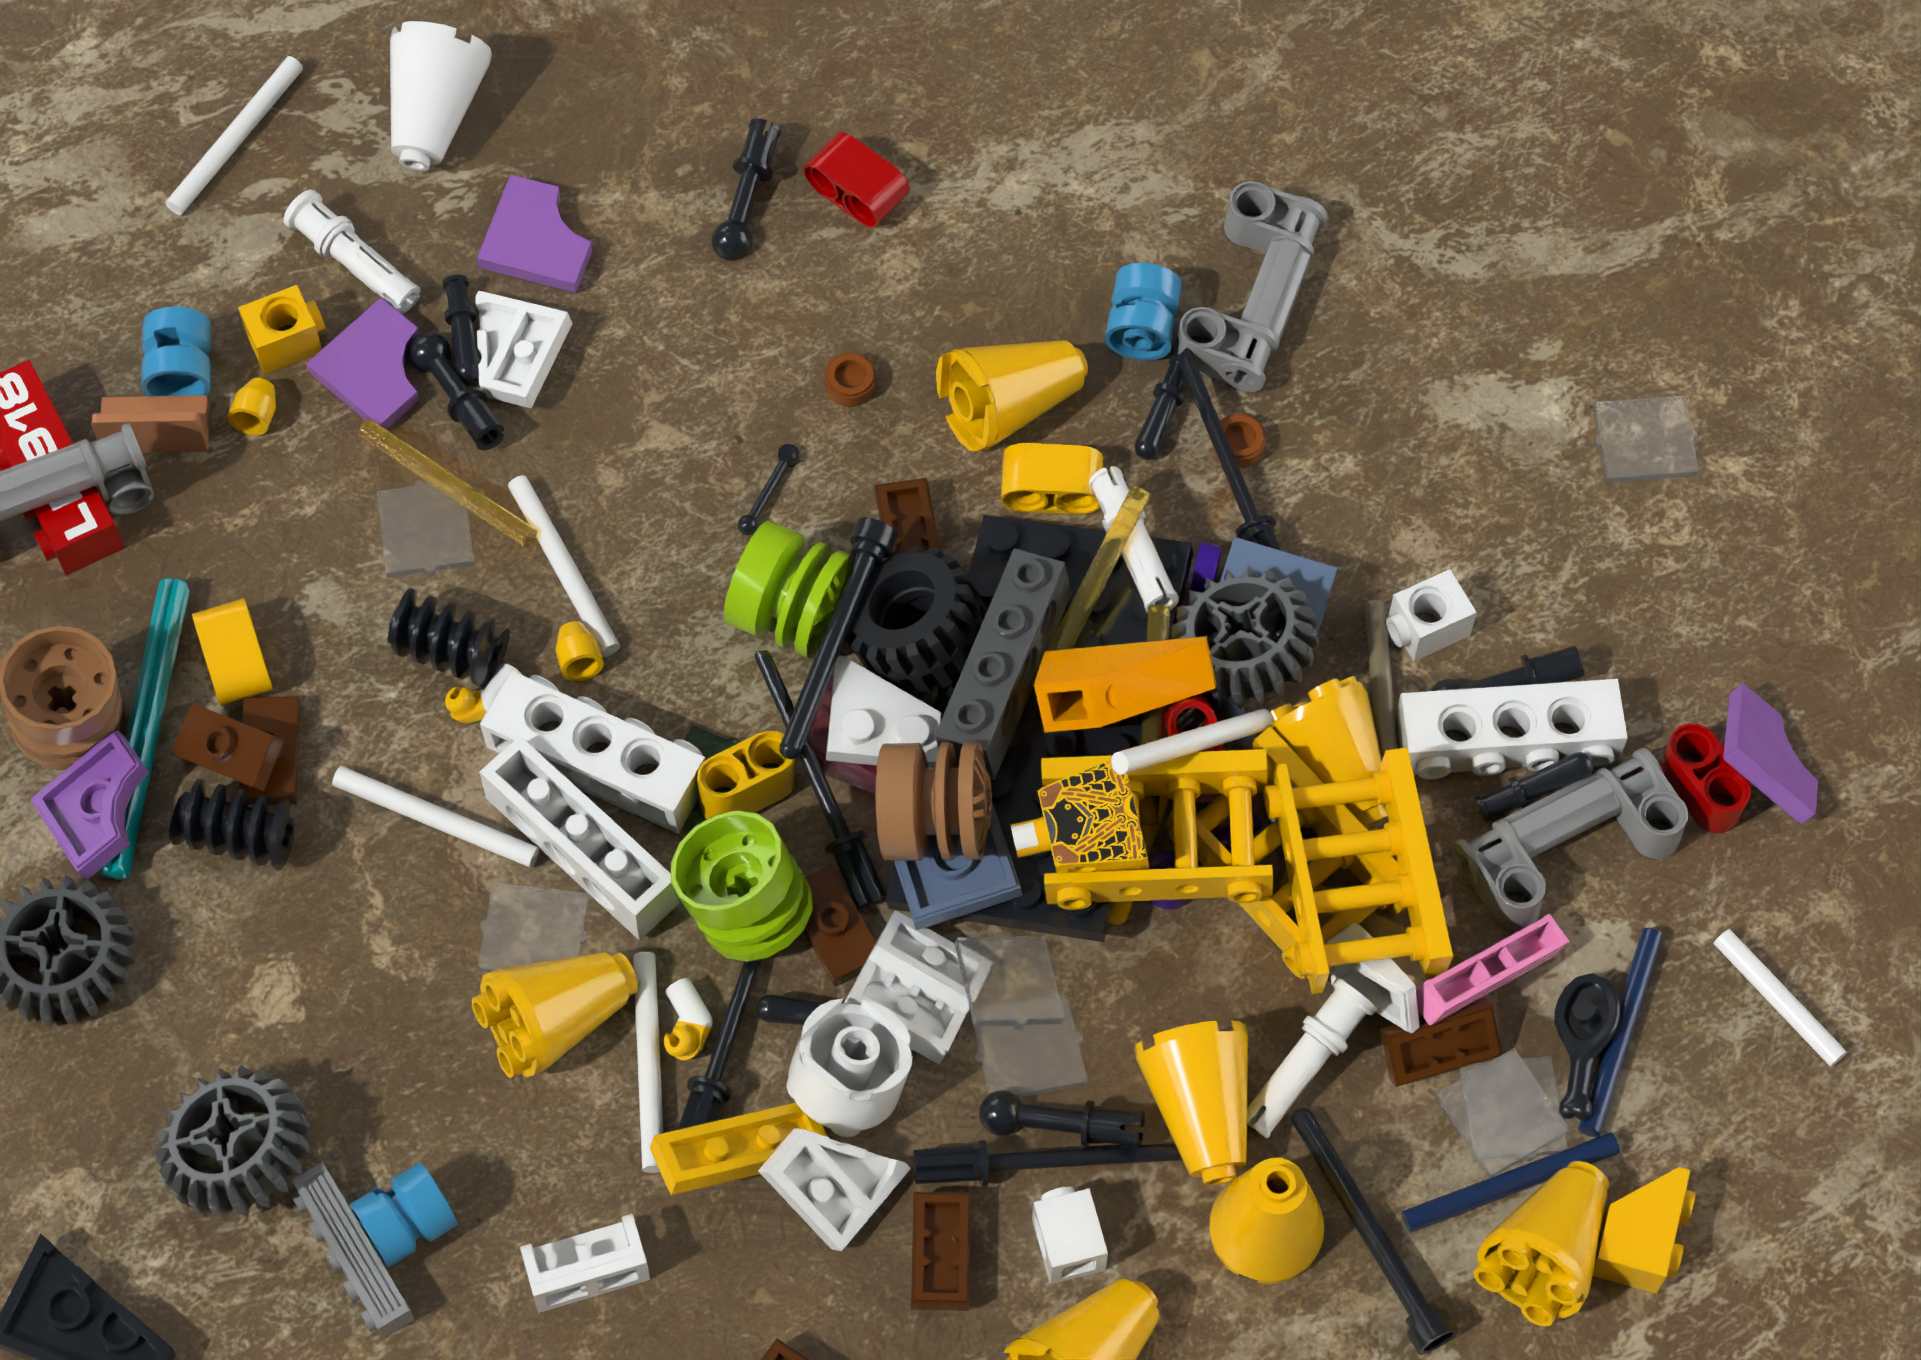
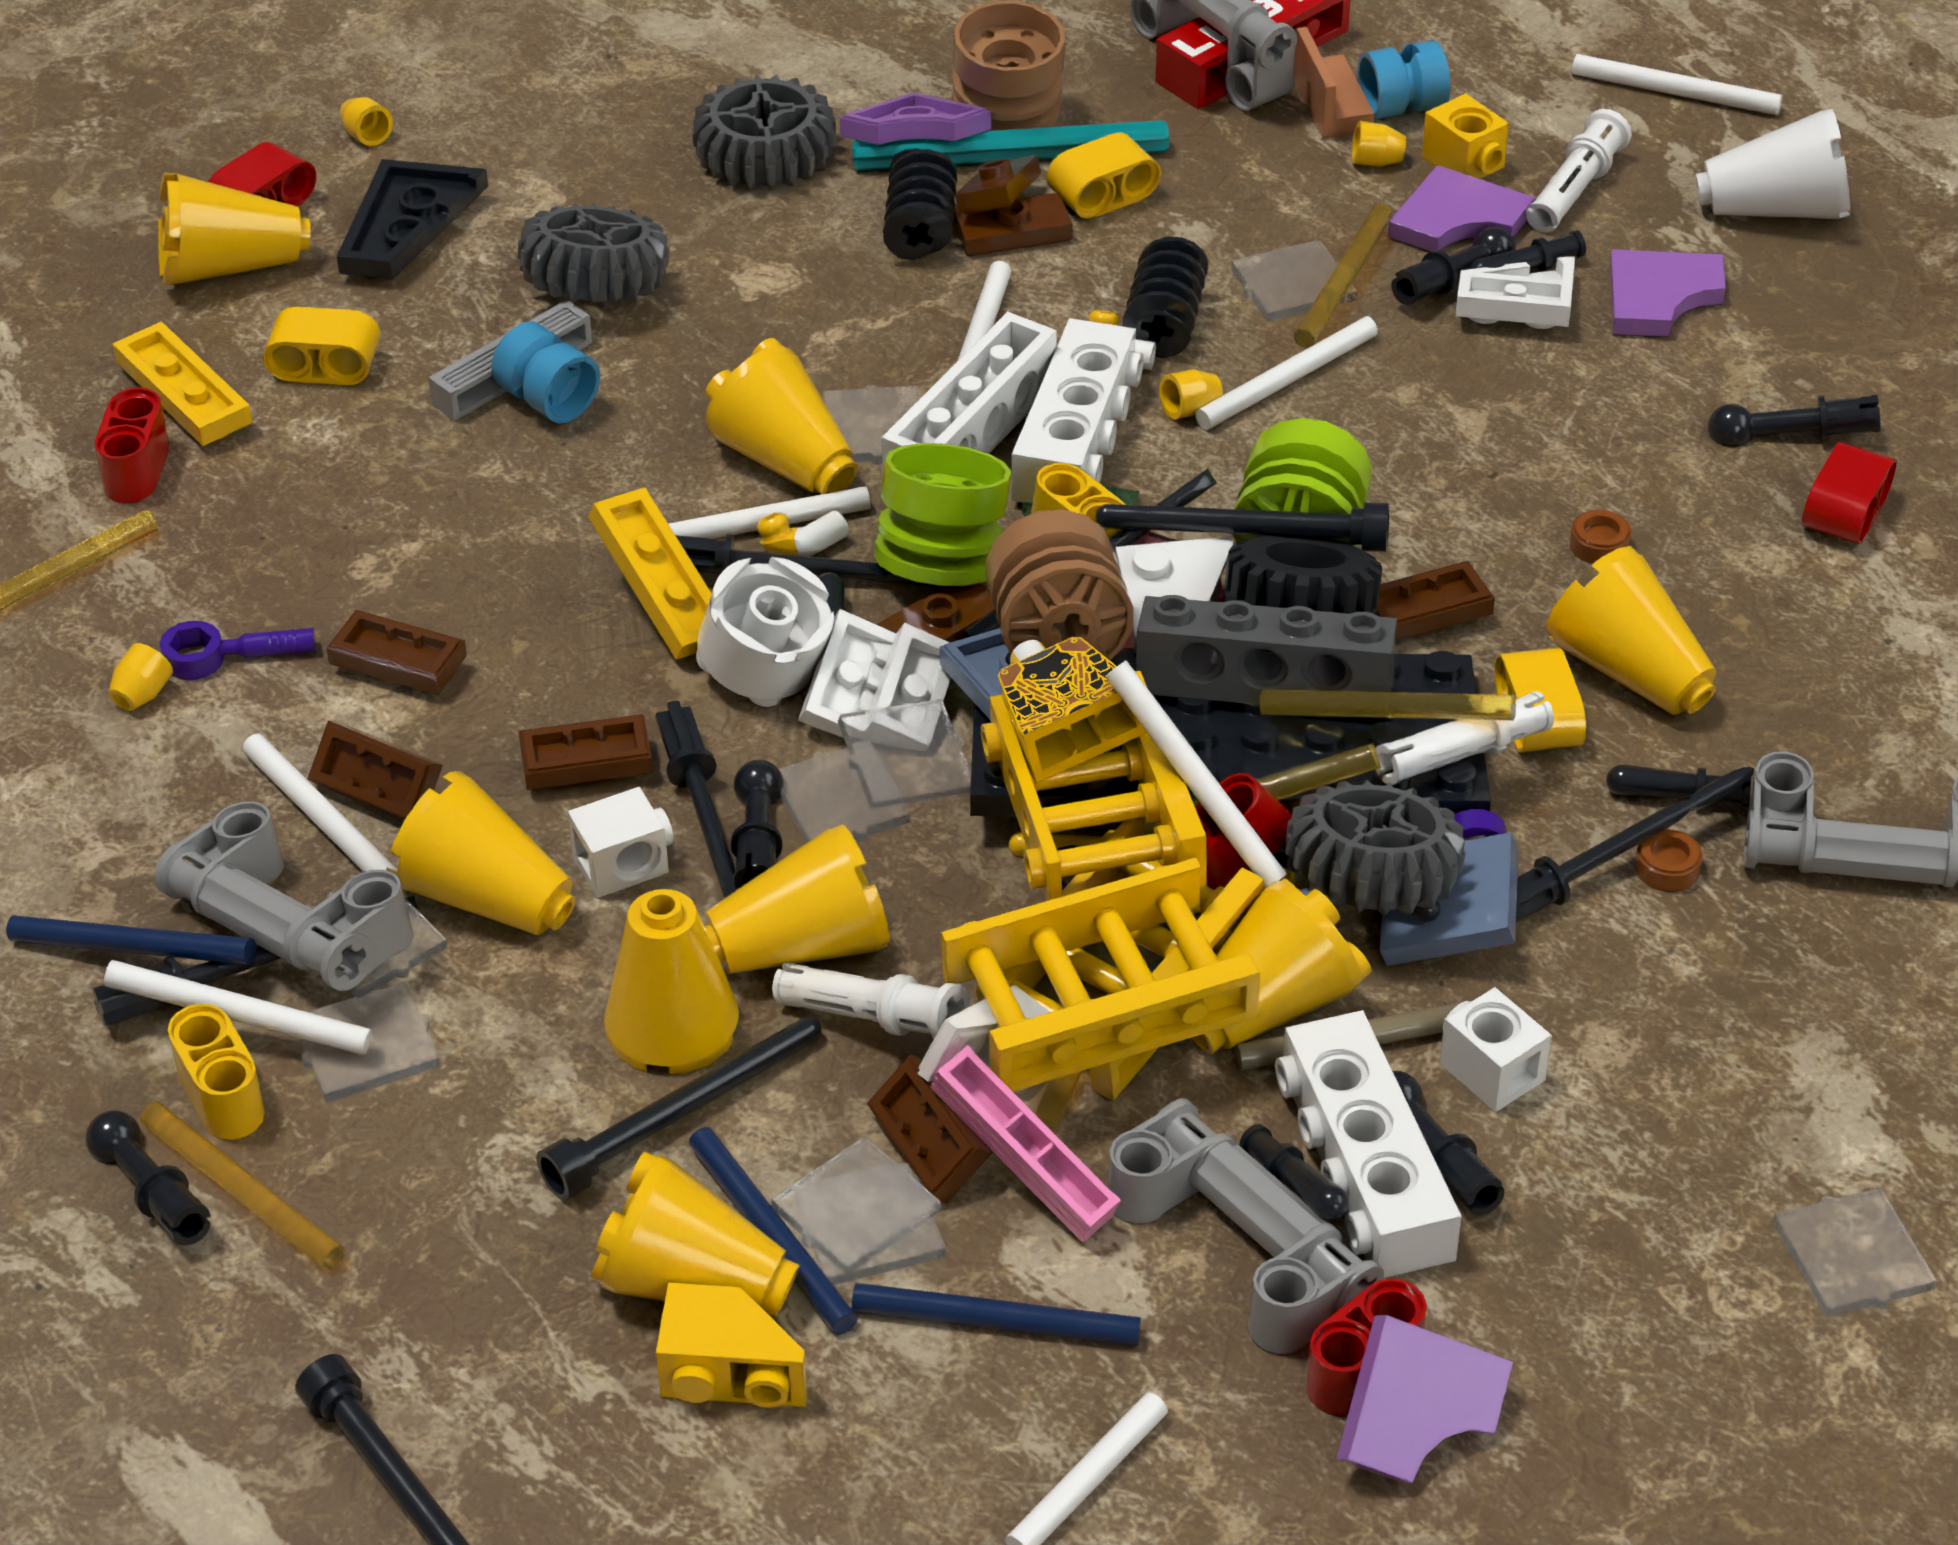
camera: 80 degrees right, 20 degrees down
(586, 1265) = (522, 505): white hinge -> none
(788, 457) = (1485, 508): black hinge -> none
(831, 1183) = (636, 643): white wing -> none
(1119, 681) = (1259, 721): light orange slope -> none
(1143, 311) = (1808, 728): dark azure wheel -> none
(1586, 1023) = (986, 1266): black piece -> none

